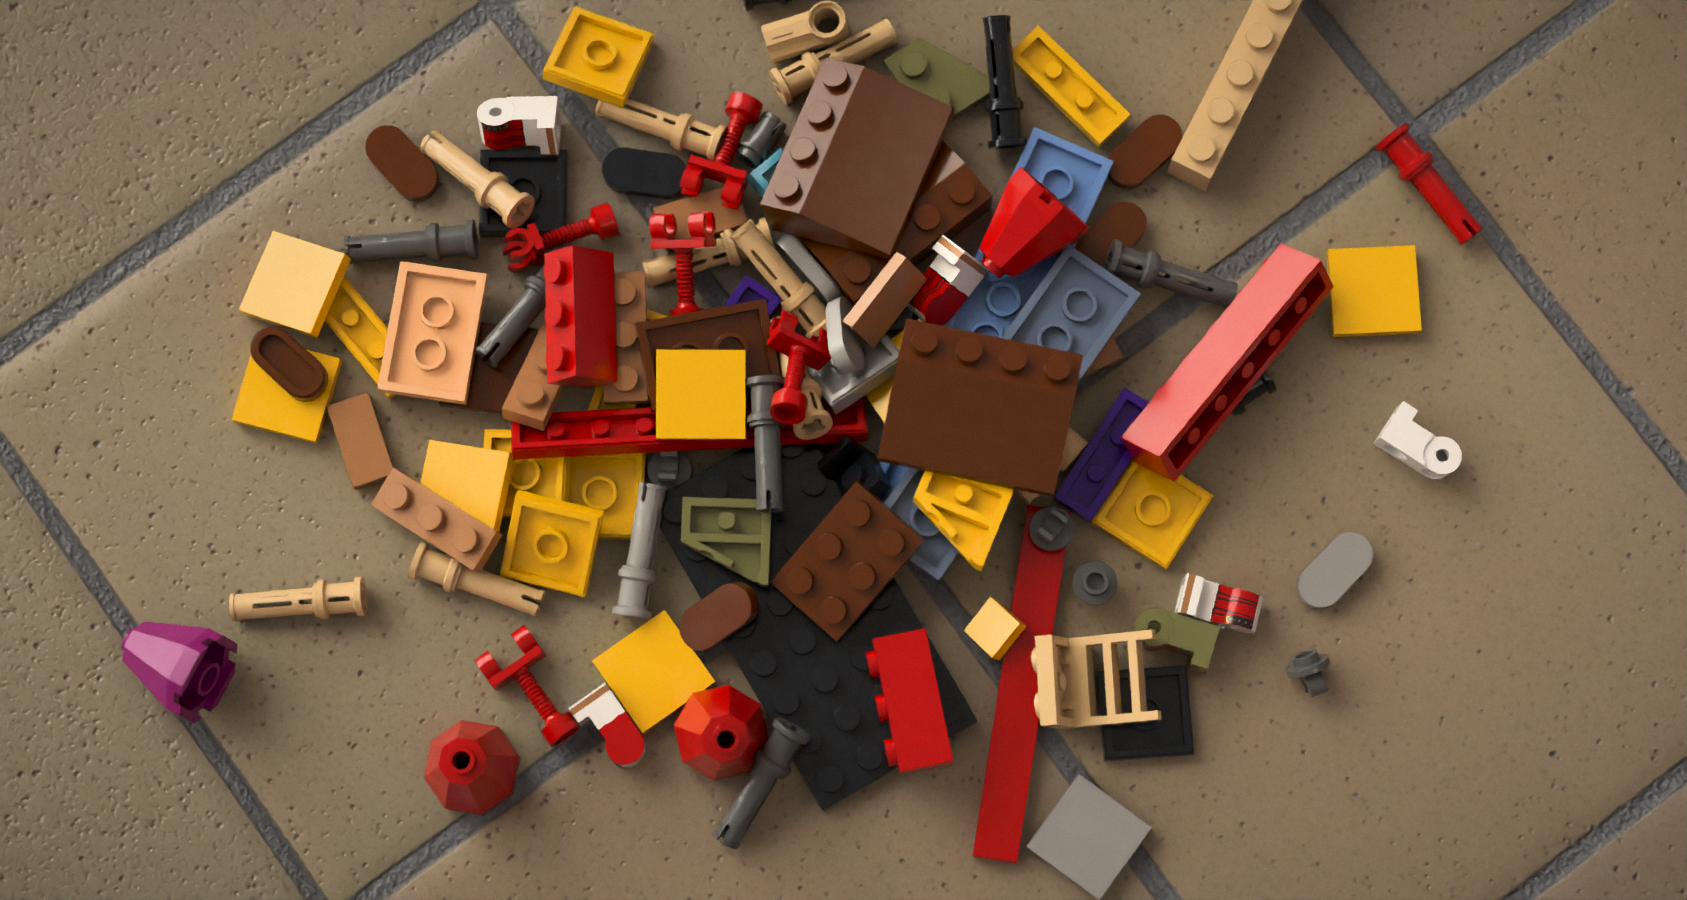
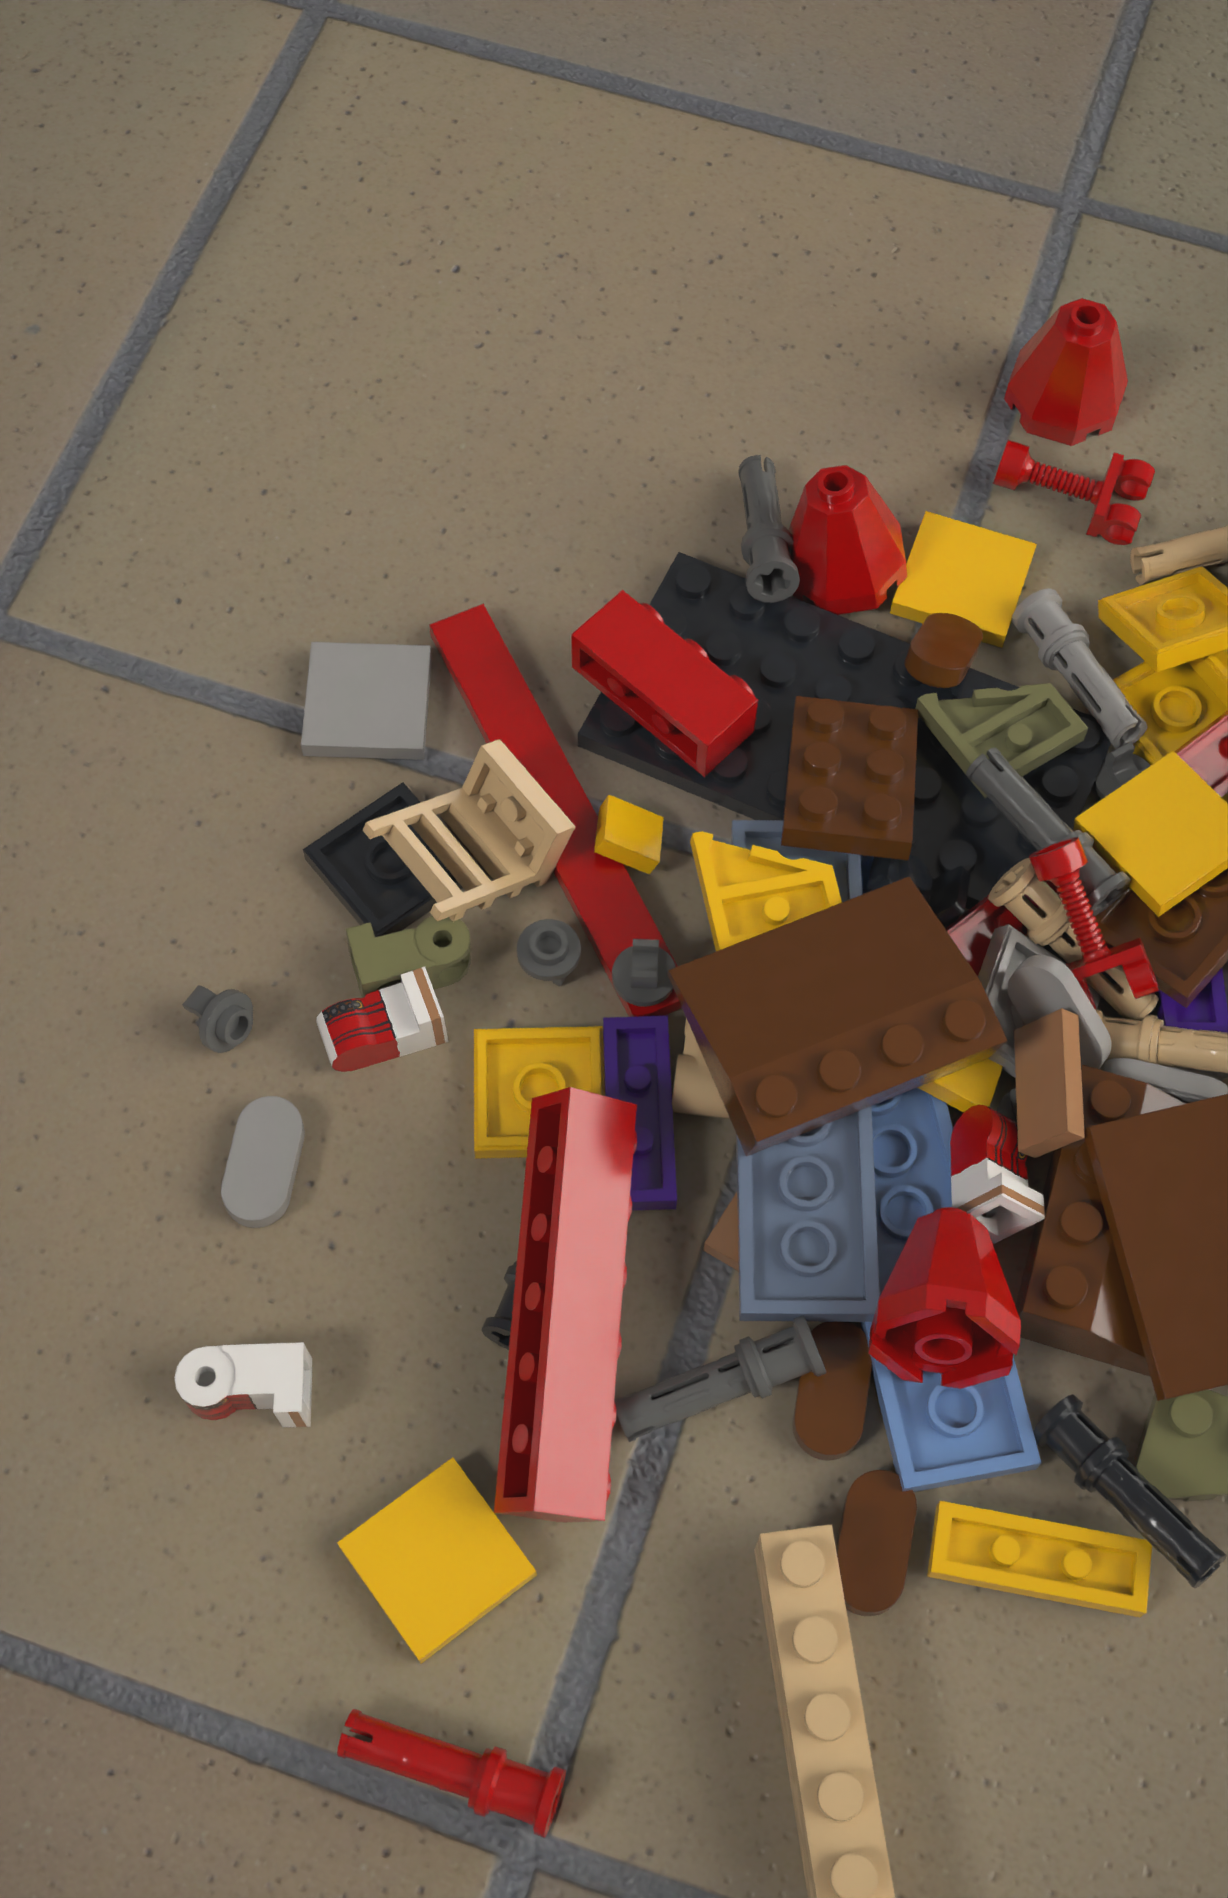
camera: 140 degrees right, 15 degrees down
(623, 739) = (961, 493): leg -> none

